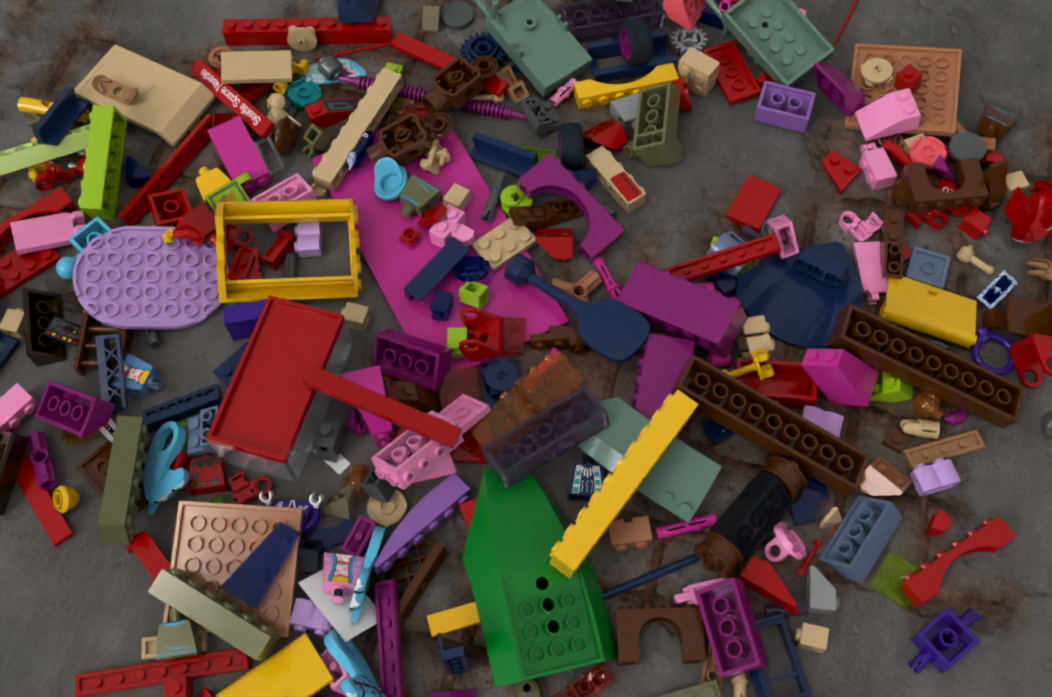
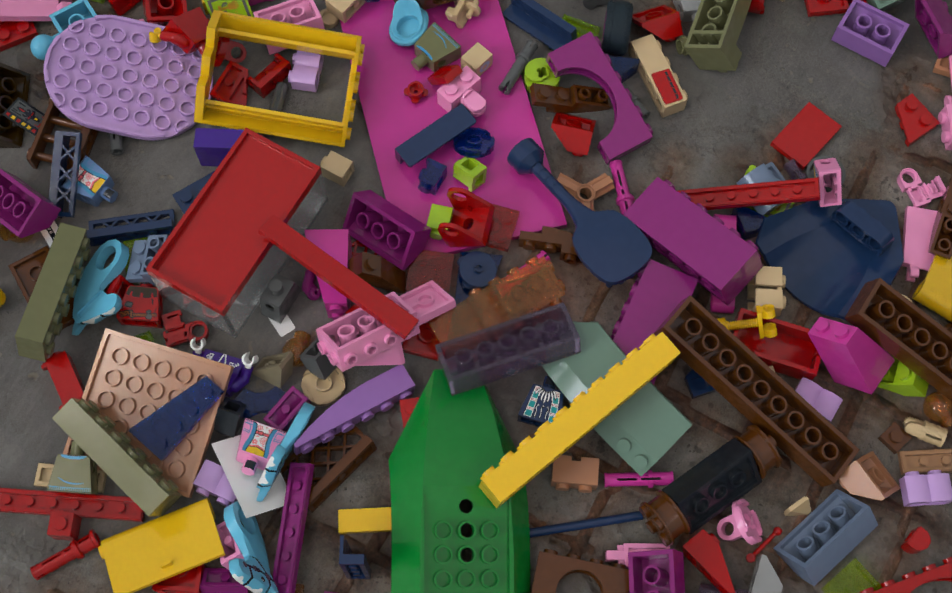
camera: 10 degrees right, 5 degrees up
(503, 244) = (516, 122): tan plate -> none
(804, 509) = (771, 491): clear blue tile -> none

